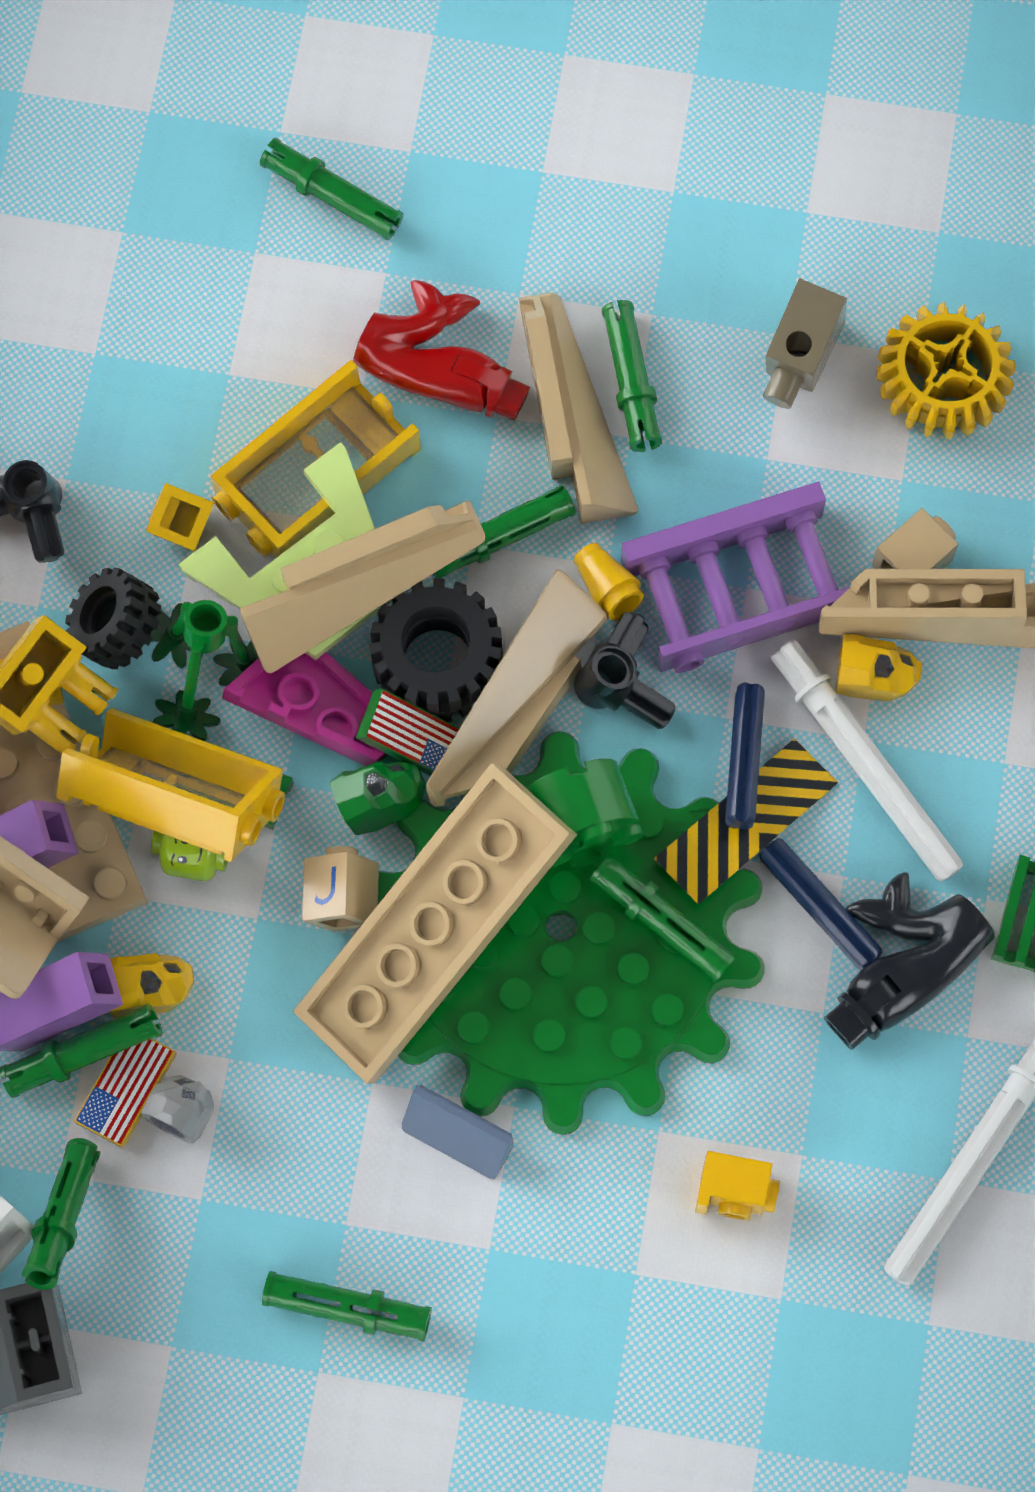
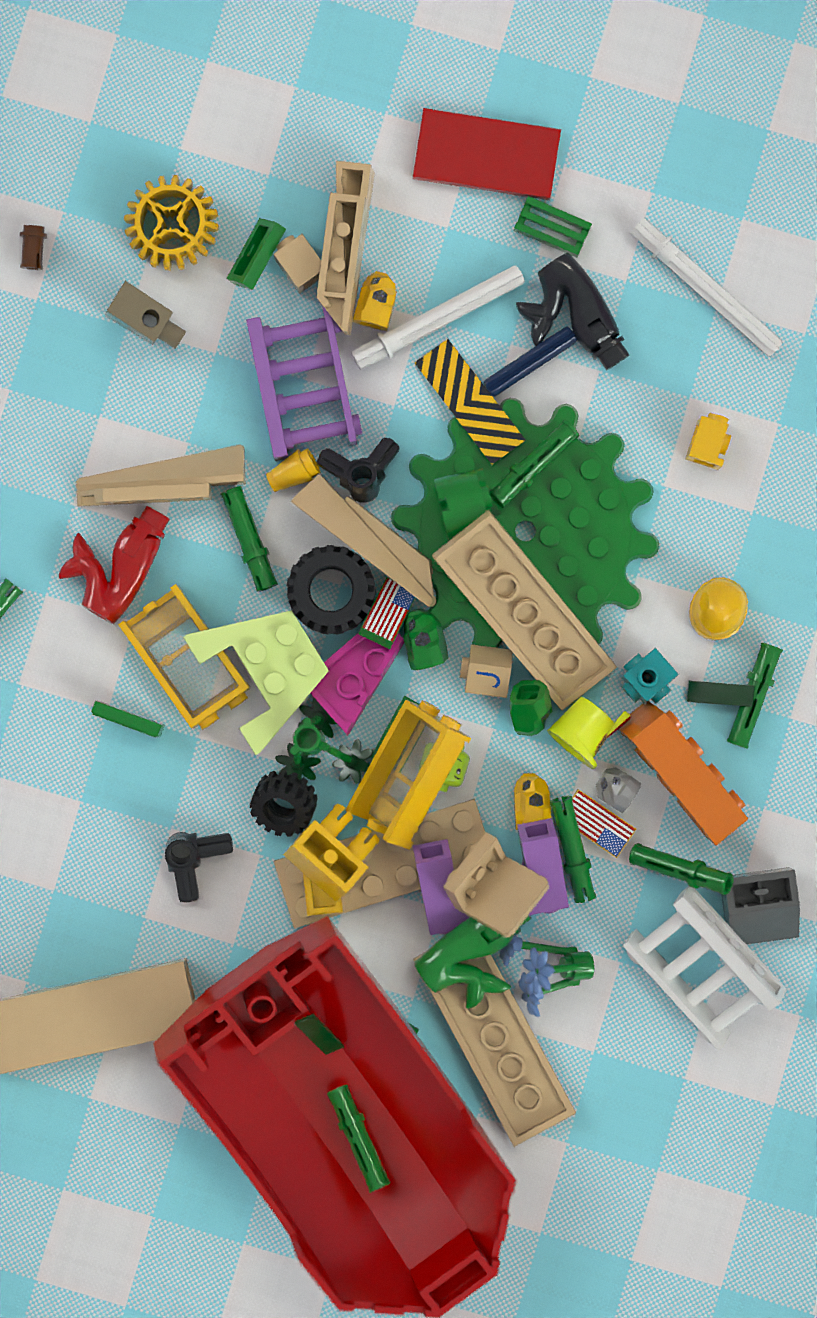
camera: 85 degrees left, 15 degrees up
(179, 517) = (217, 751): yellow brick -> none
(212, 1203) = (684, 772): none -> orange wedge
(217, 395) = (127, 719): none -> green tile
(264, 1045) = (585, 730): none -> neon yellow hat
(290, 956) = (530, 707): none -> green rock
(344, 1253) = (720, 693): none -> dark green window
(356, 578) = (285, 636): tan wedge -> none
(362, 1150) = (657, 668): none -> teal brick
(457, 1132) = (652, 613): sand blue slope -> none
(477, 1235) = (718, 608): none -> yellow hat
(635, 394) = (148, 435): green pin -> none
(745, 756) = (427, 396): dark blue axle -> none
(880, 193) = (32, 247): none -> reddish brown pin
(919, 490) = (256, 253): none -> green tile

